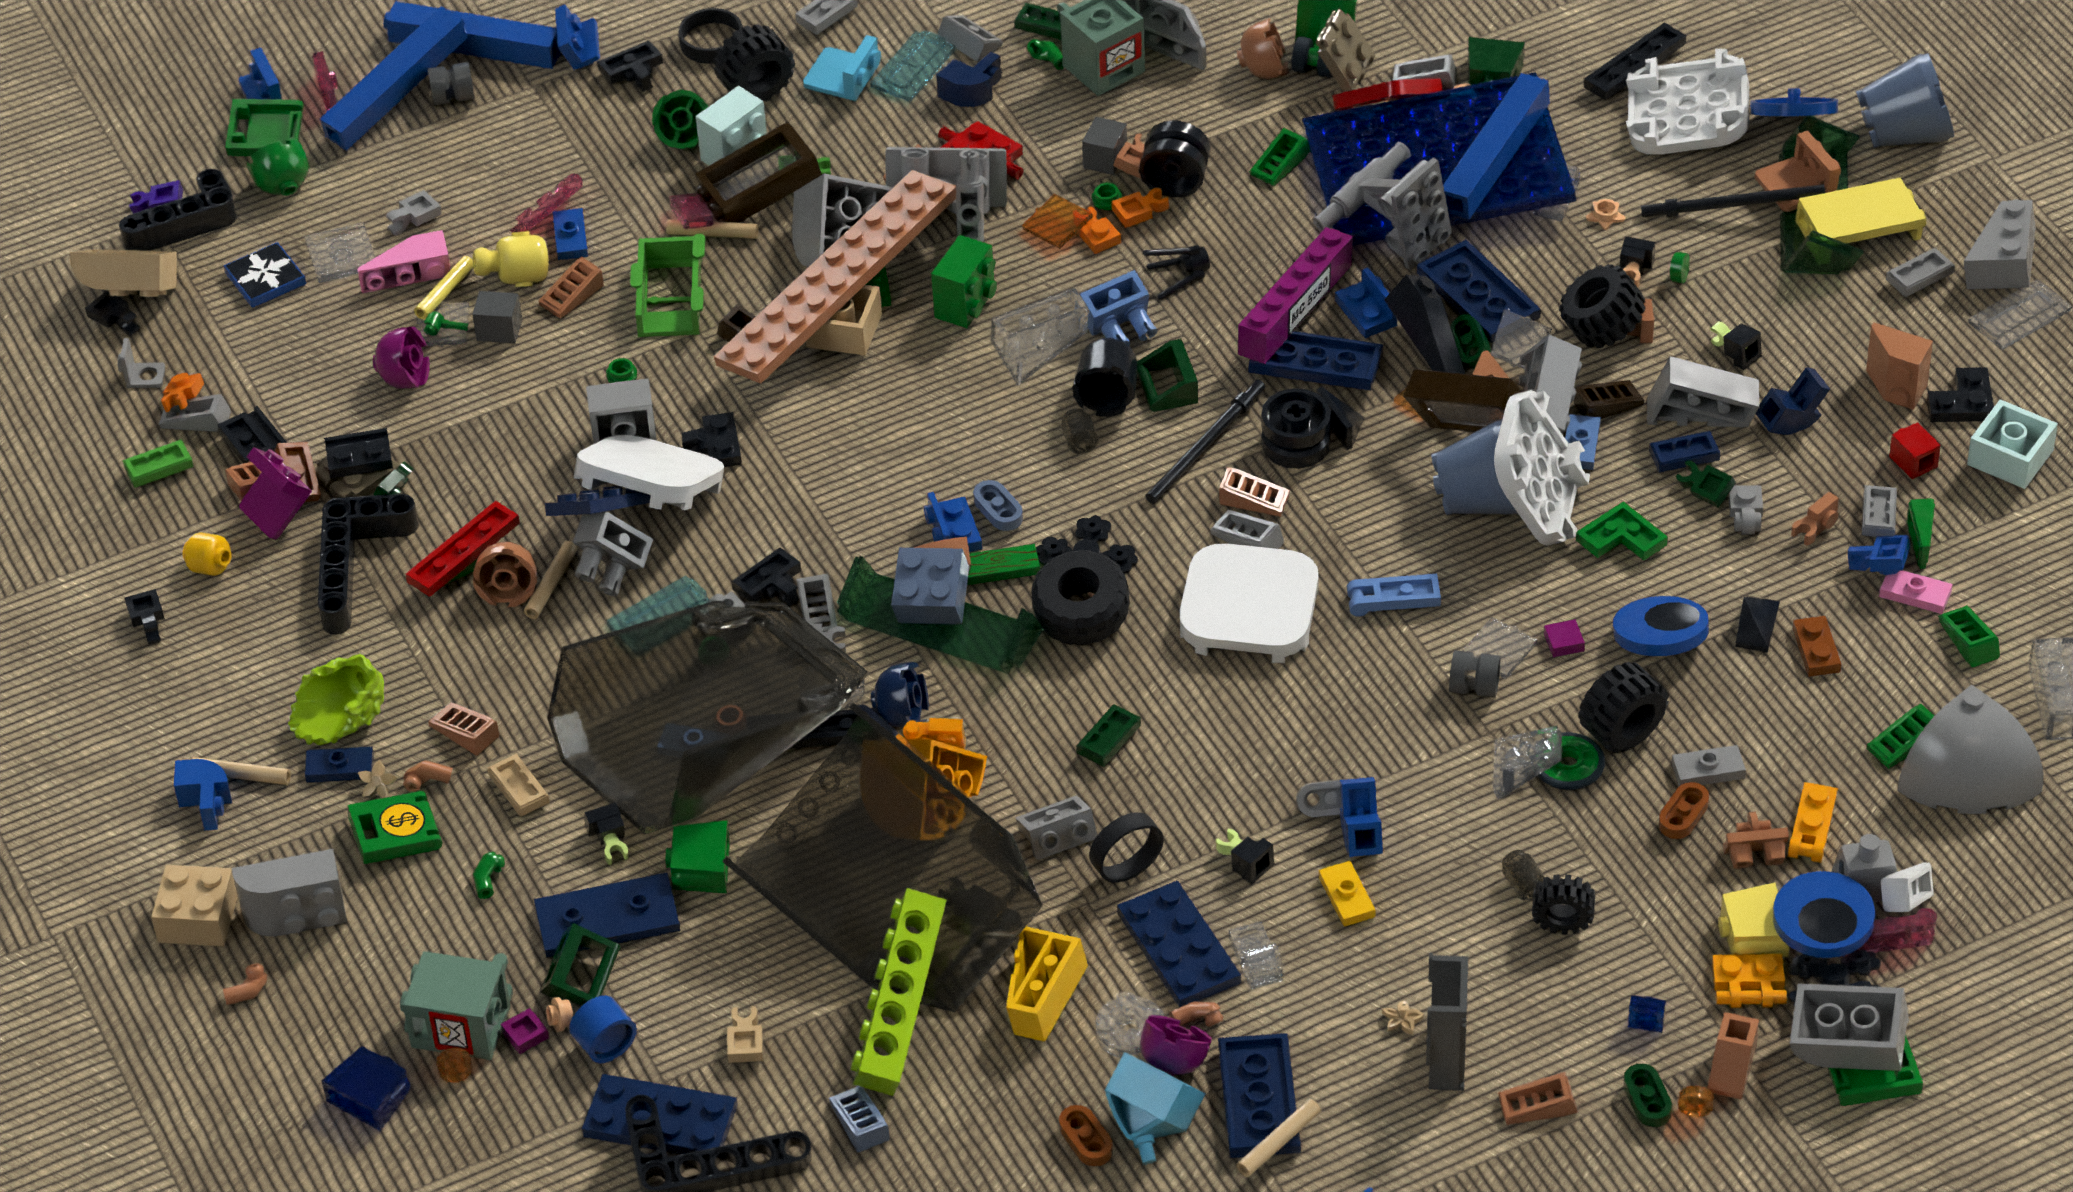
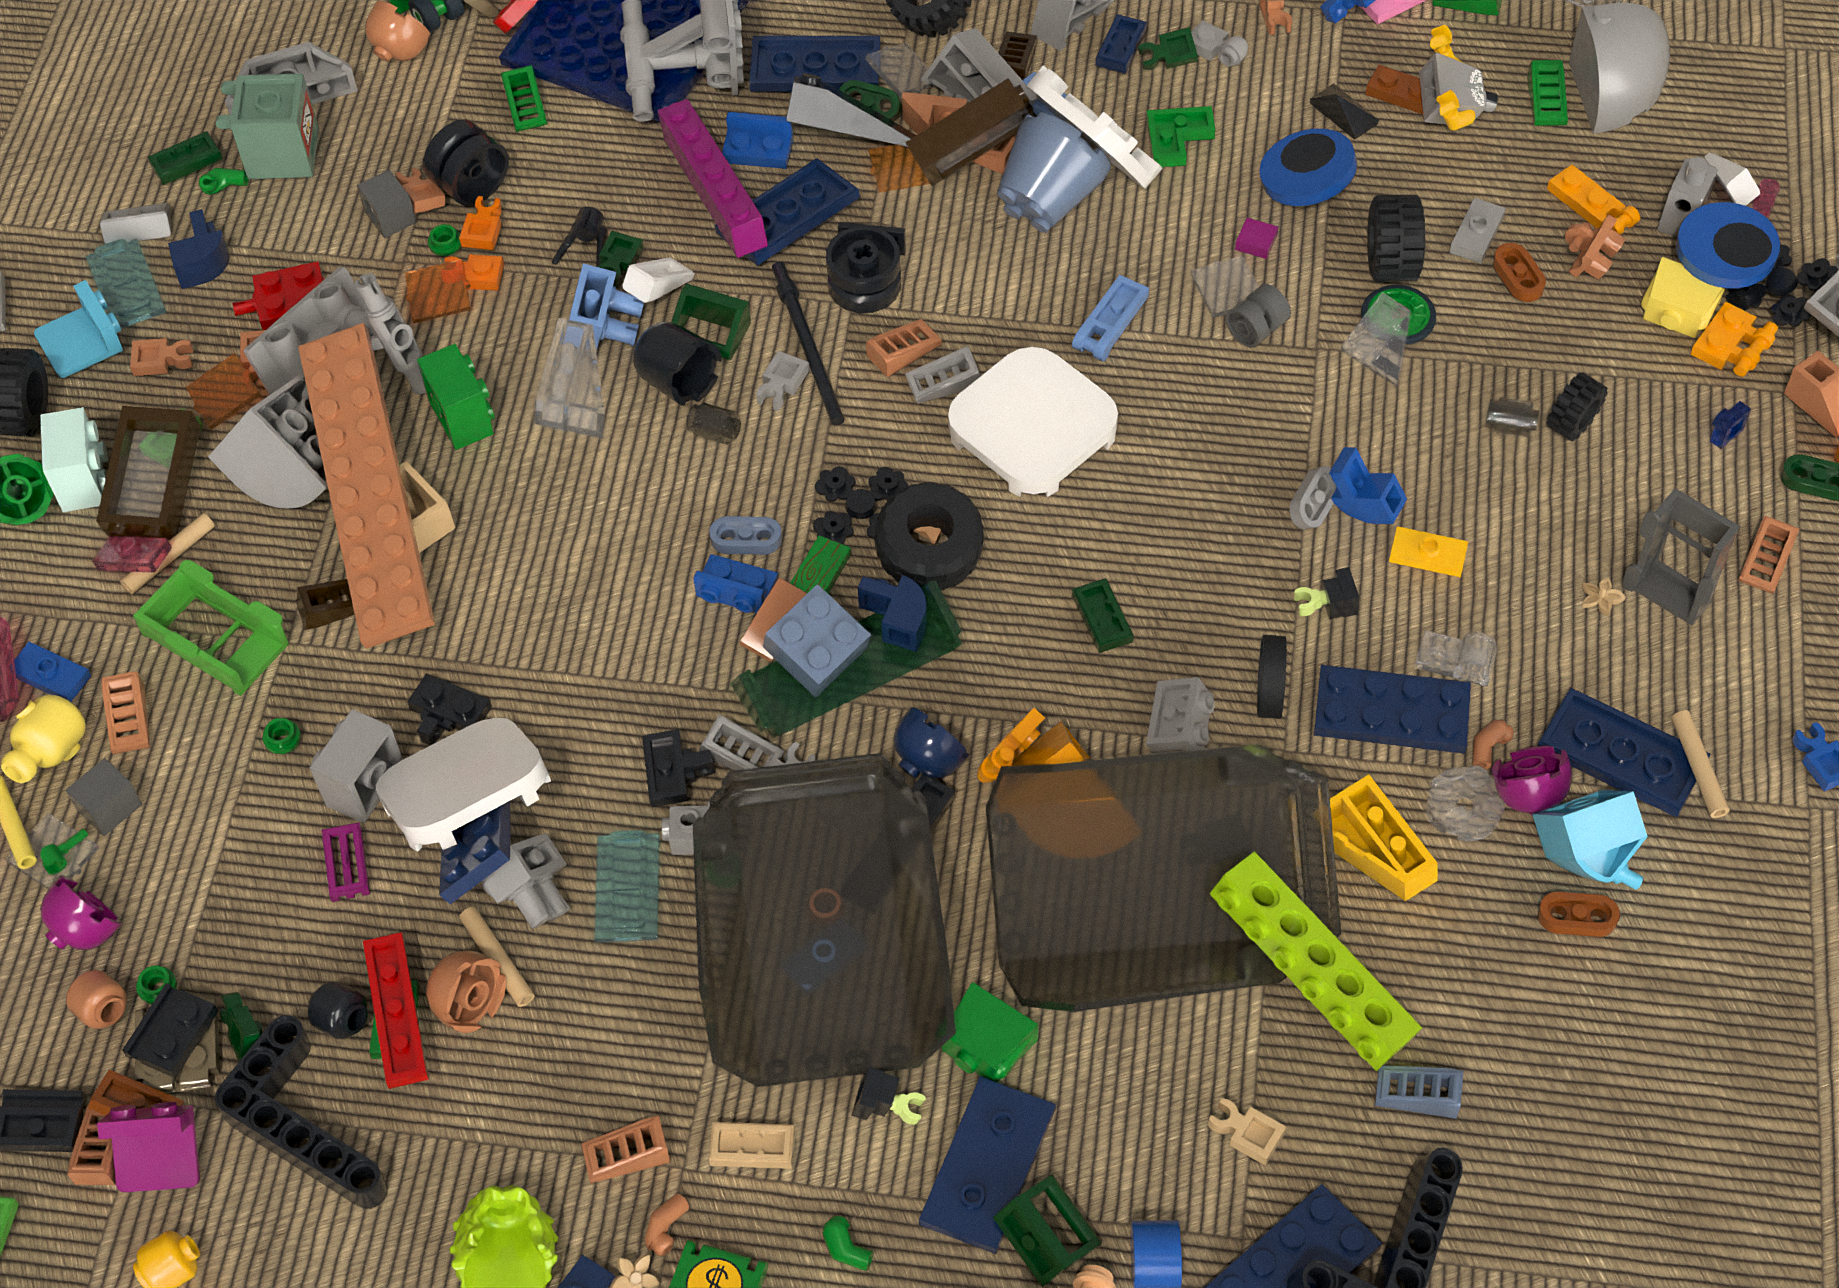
camera: 55 degrees left, 10 degrees up
(353, 408) = (96, 999): none -> nougat head
(395, 428) = (150, 977): none -> green plate
(440, 522) = (337, 1010): none -> black head
(560, 467) = (350, 888): none -> magenta tile
(863, 117) = (155, 356): none -> nougat plate
(865, 166) = (223, 391): none -> clear orange piece
(998, 620) = (902, 609): none -> dark blue brick
(1157, 443) = (782, 375): none -> light grey plate
(1171, 321) = (655, 278): none -> white slope
(1182, 293) = (619, 253): none -> dark green plate
(1831, 668) = (1451, 89): none -> torso

